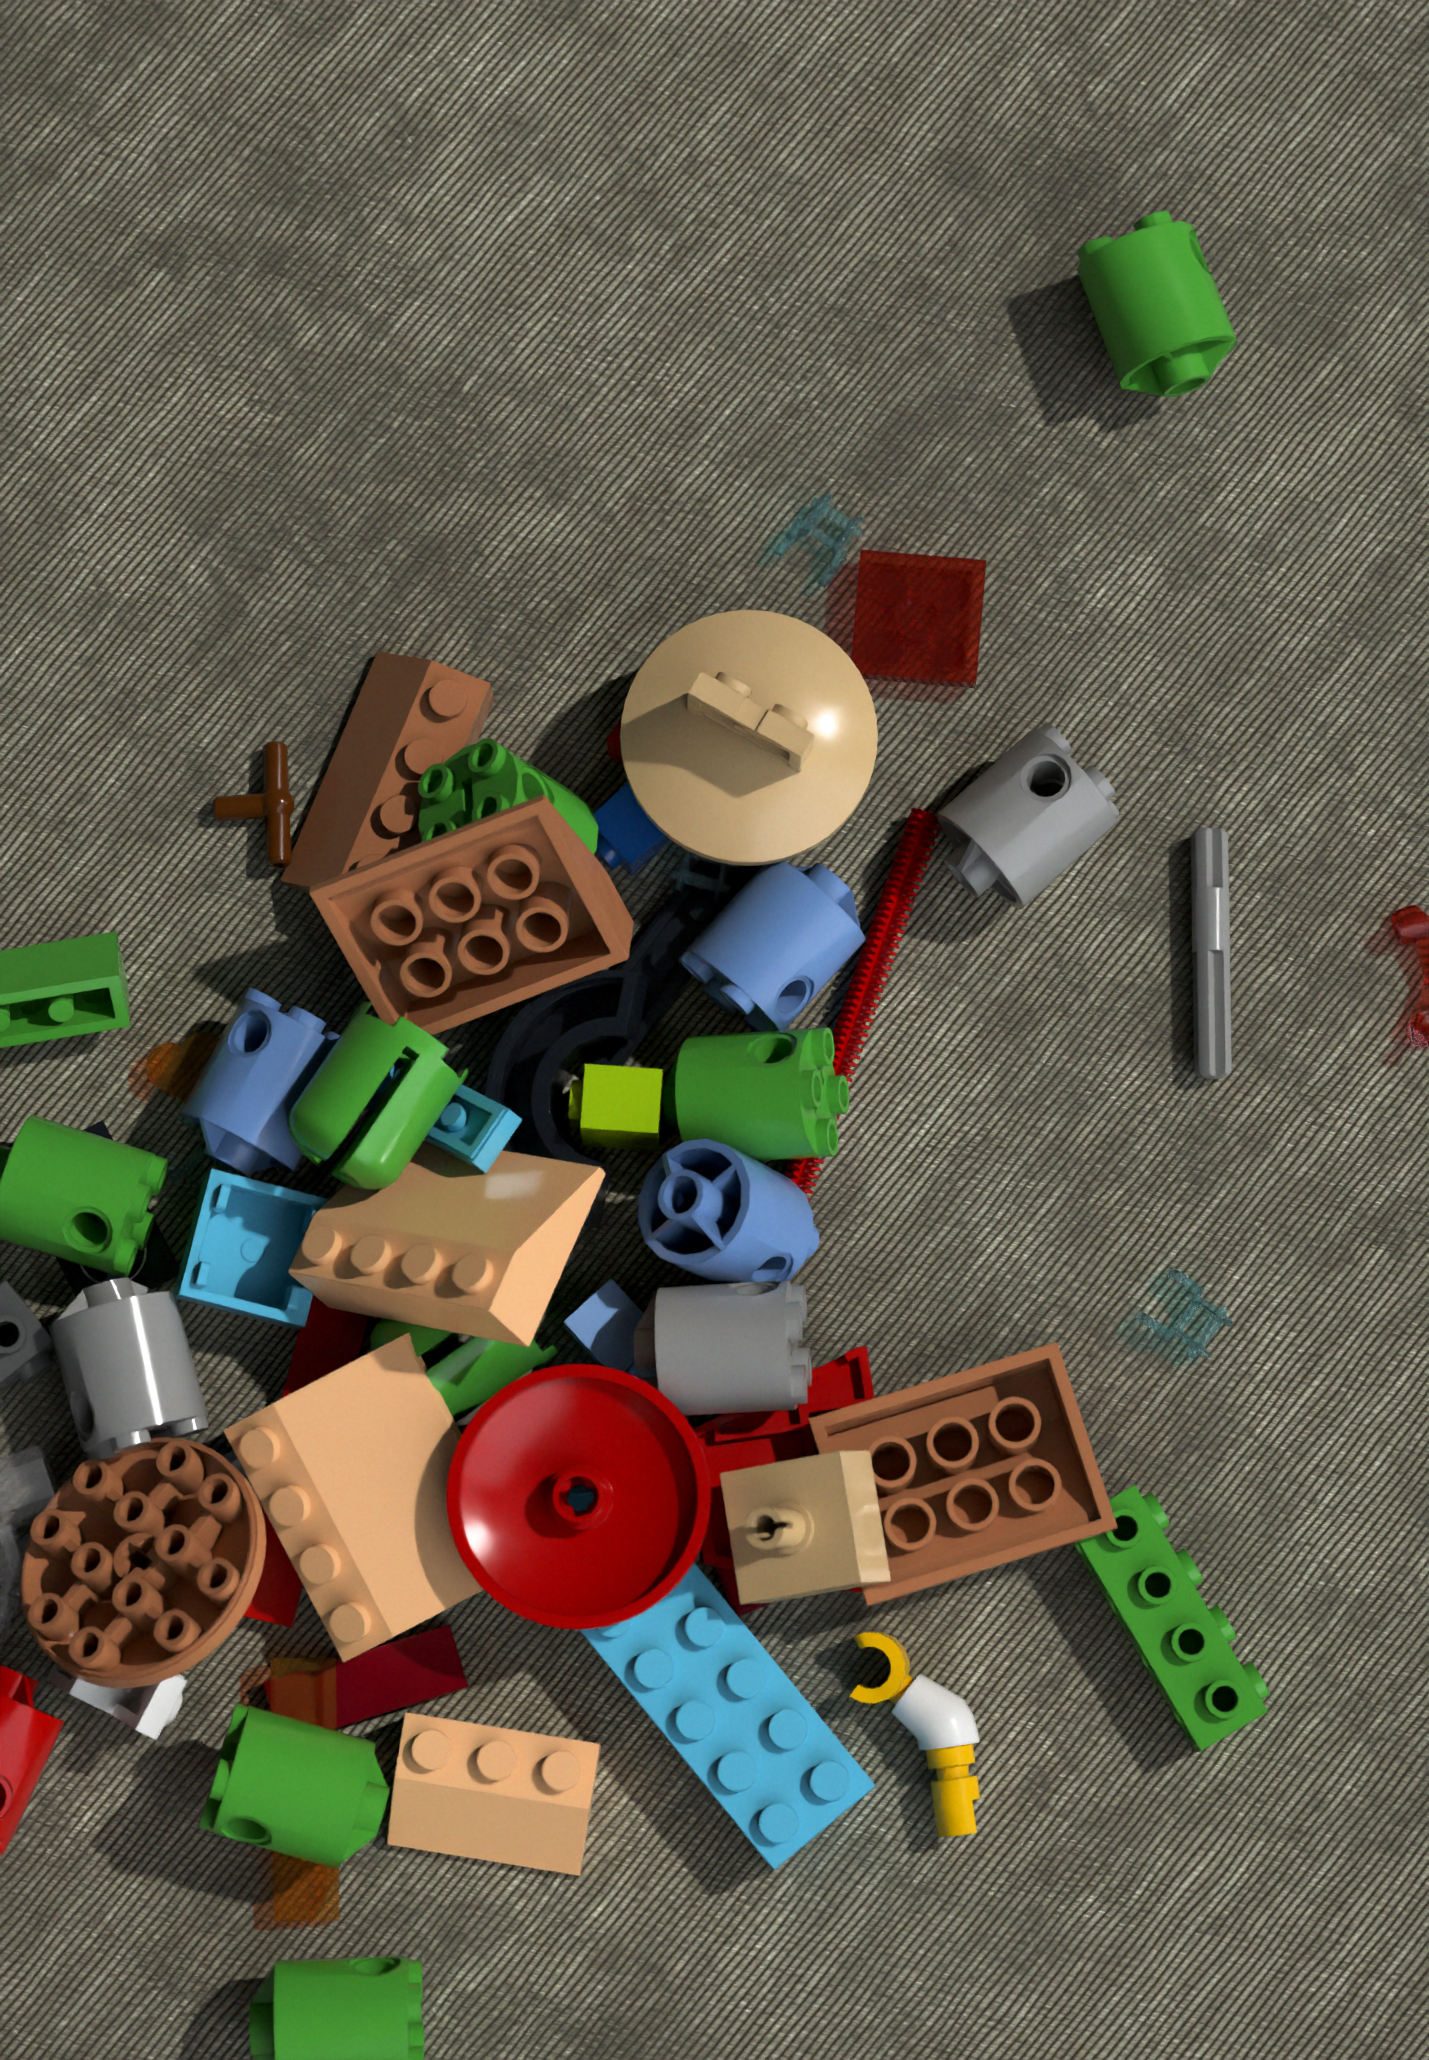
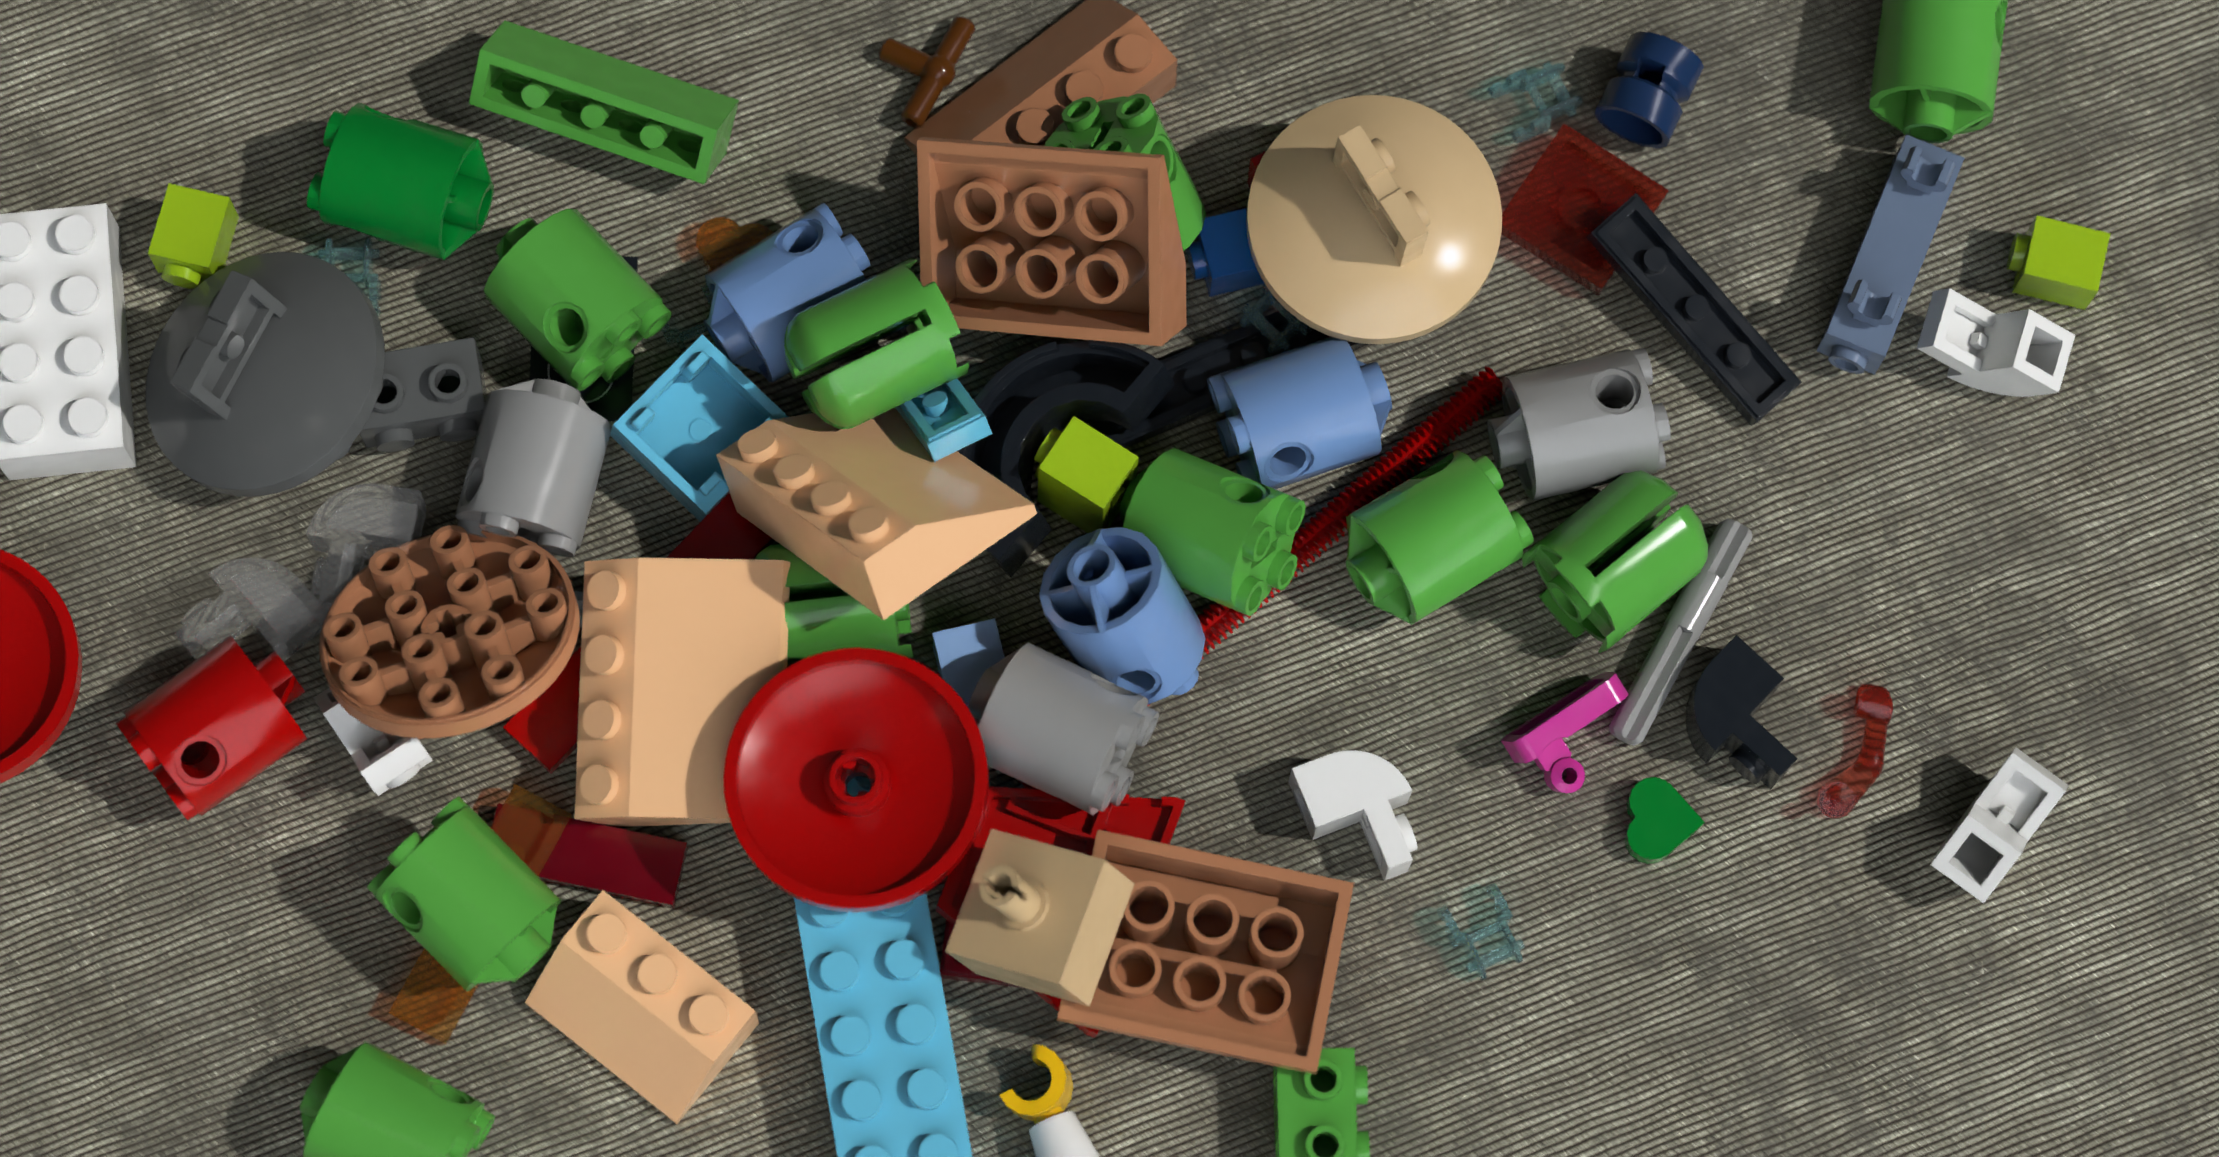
camera: 25 degrees right, 5 degrees down
(919, 499) = (1651, 85): none -> dark blue wheel
(954, 992) = (1434, 537): none -> bright green cylinder
(1012, 1249) = (1355, 789): none -> white brick
(1066, 657) = (1693, 309): none -> black tile
(1092, 913) = (1639, 579): none -> bright green cylinder
(1143, 1111) = (1542, 735): none -> dark pink piece
(1211, 514) = (1889, 256): none -> sand blue brick
(1283, 1131) = (1659, 820): none -> green tile
(1285, 1003) = (1722, 714): none -> black brick
(1349, 550) = (1995, 352): none -> white brick
(1361, 438) = (2058, 262): none -> lime brick

